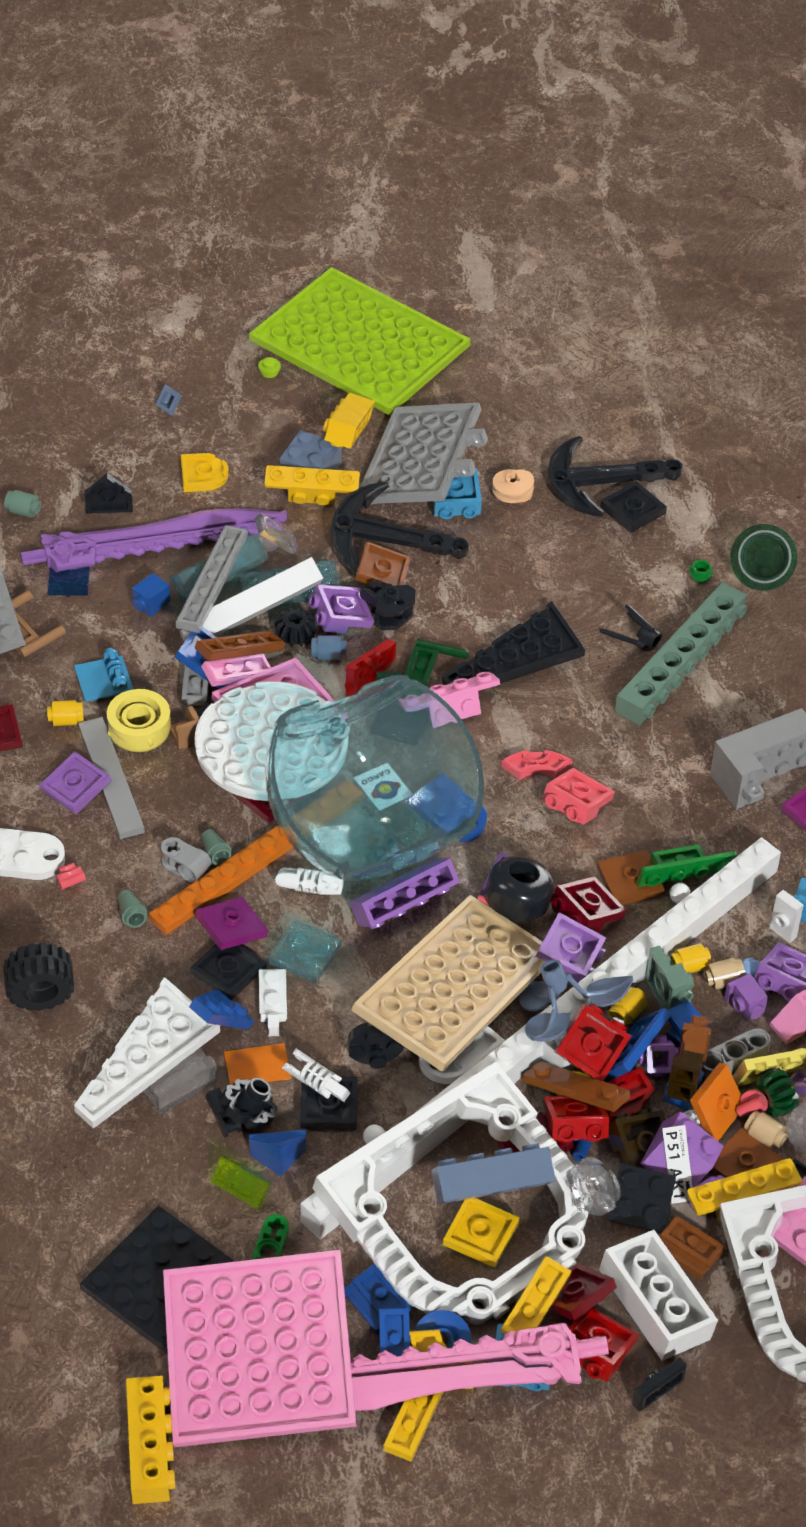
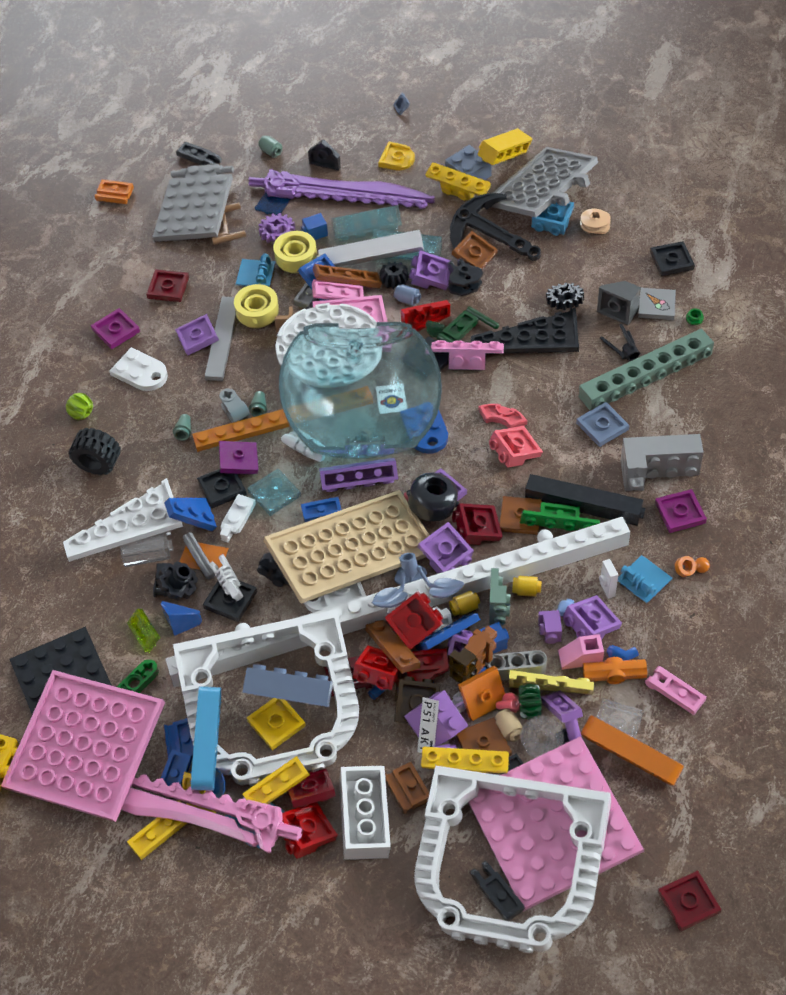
camera: 30 degrees right, 5 degrees up
(65, 713) = (217, 288): yellow brick -> none
(70, 875) = (159, 393): coral plate -> none
(99, 611) = (275, 226): none -> medium lavender gear
(147, 634) = (294, 250): none -> light yellow piece
(211, 579) = (350, 226): light grey tile -> none
(255, 1064) = (198, 555): none -> light grey axle
(269, 367) = (479, 99): lime plate -> none
(274, 535) = (414, 210): clear tile -> none
(360, 340) = (550, 96): lime plate -> none
(380, 953) = (320, 508): none -> blue plate
(424, 1276) = (206, 739): none -> dark azure beam
(531, 591) = (565, 296): none -> black gear
(566, 479) = (635, 225): black piece -> none
(586, 1198) = (367, 713): clear plate -> none
(604, 577) = (619, 301): none -> dark grey slope
(643, 1198) = (393, 740): black plate -> none
(645, 568) = (657, 303): none -> light grey tile
(658, 1384) = (330, 874): black plate -> none
(666, 735) = (602, 424): none -> sand blue plate
(681, 1014) = (493, 621): blue tile -> none
(709, 831) = (590, 500): none -> black brick
(723, 972) = (544, 602): tan brick -> none
(763, 557) = (742, 319): clear green piece -> none

